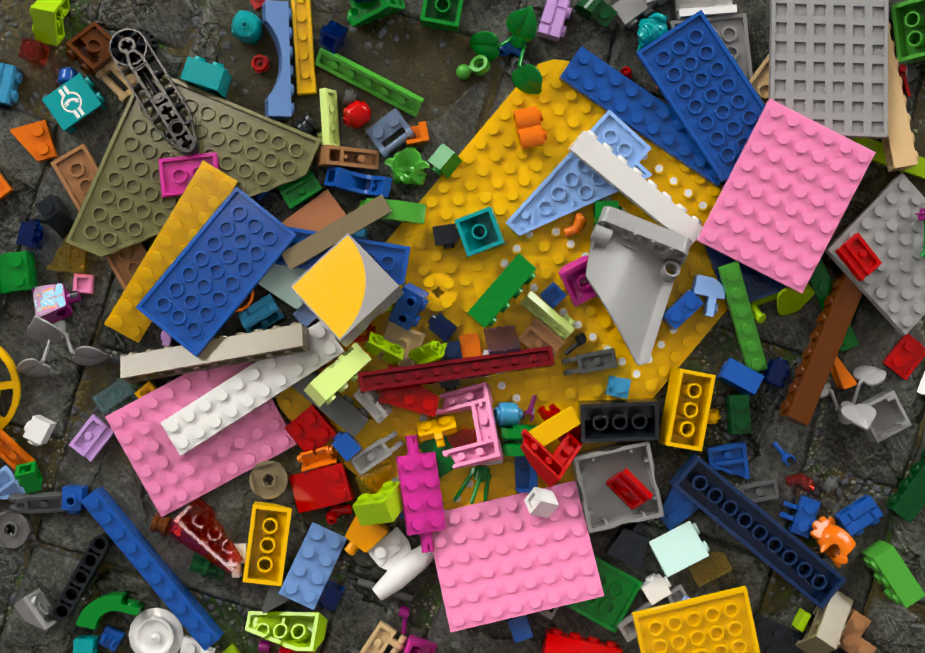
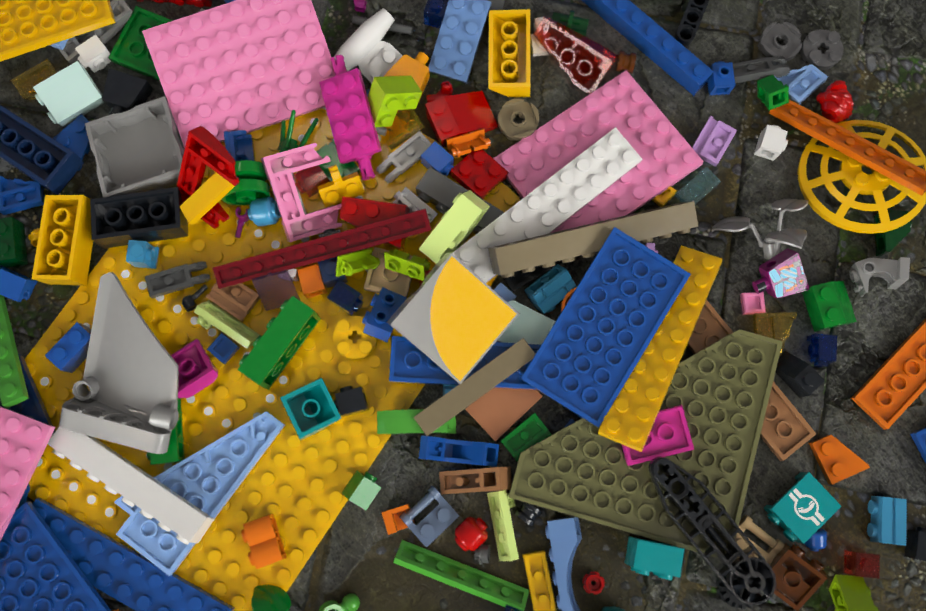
camera: 165 degrees right, 10 degrees down
(408, 167) = (403, 477): bright green hair -> none
(541, 502) = (218, 120): white panel -> none
(578, 225) = (199, 431): orange arm -> none
(629, 489) = (125, 148): red plate -> none
(711, 290) = (41, 373): light blue brick -> none

